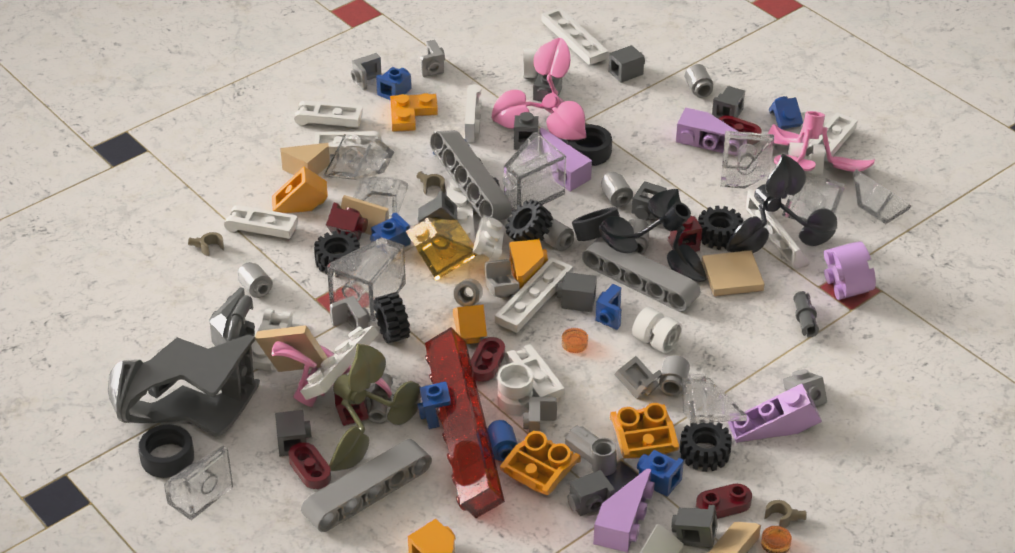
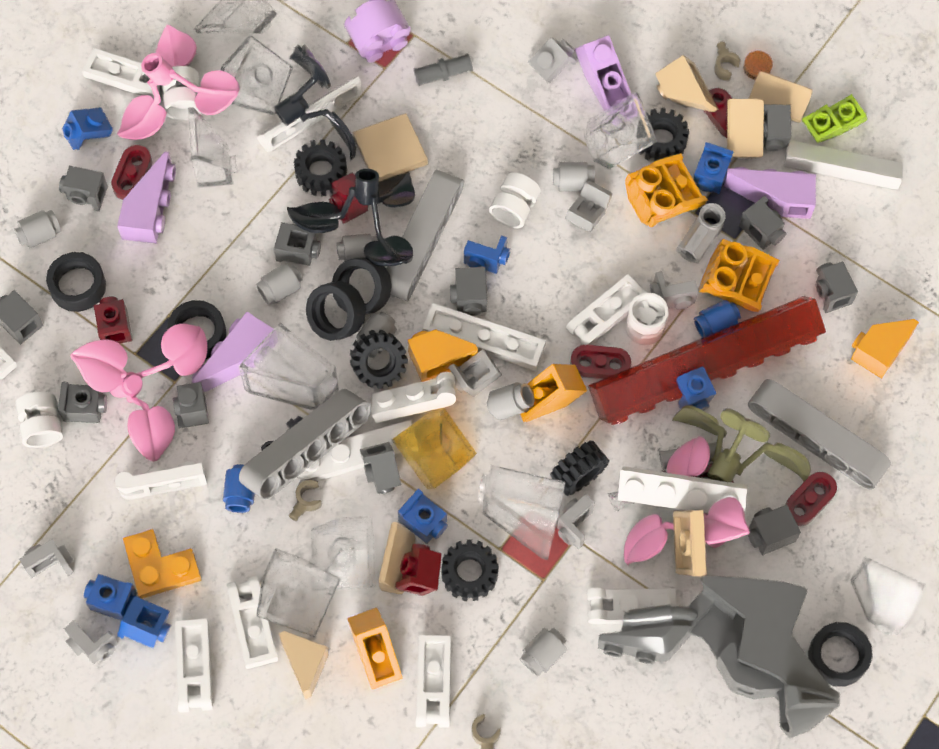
camera: 105 degrees left, 25 degrees up
(368, 92) = (144, 623): none -> blue brick
(509, 532) = (835, 286): none -> dark grey brick
(574, 340) = (540, 284): clear orange tile -> none
(579, 206) = (316, 313): none -> black tyre
(609, 106) = (112, 320): none -> dark red brick
(648, 83) = (69, 262): none -> black tyre
(696, 495) = (745, 127): none -> tan slope
(751, 465) = (684, 85): none -> tan slope

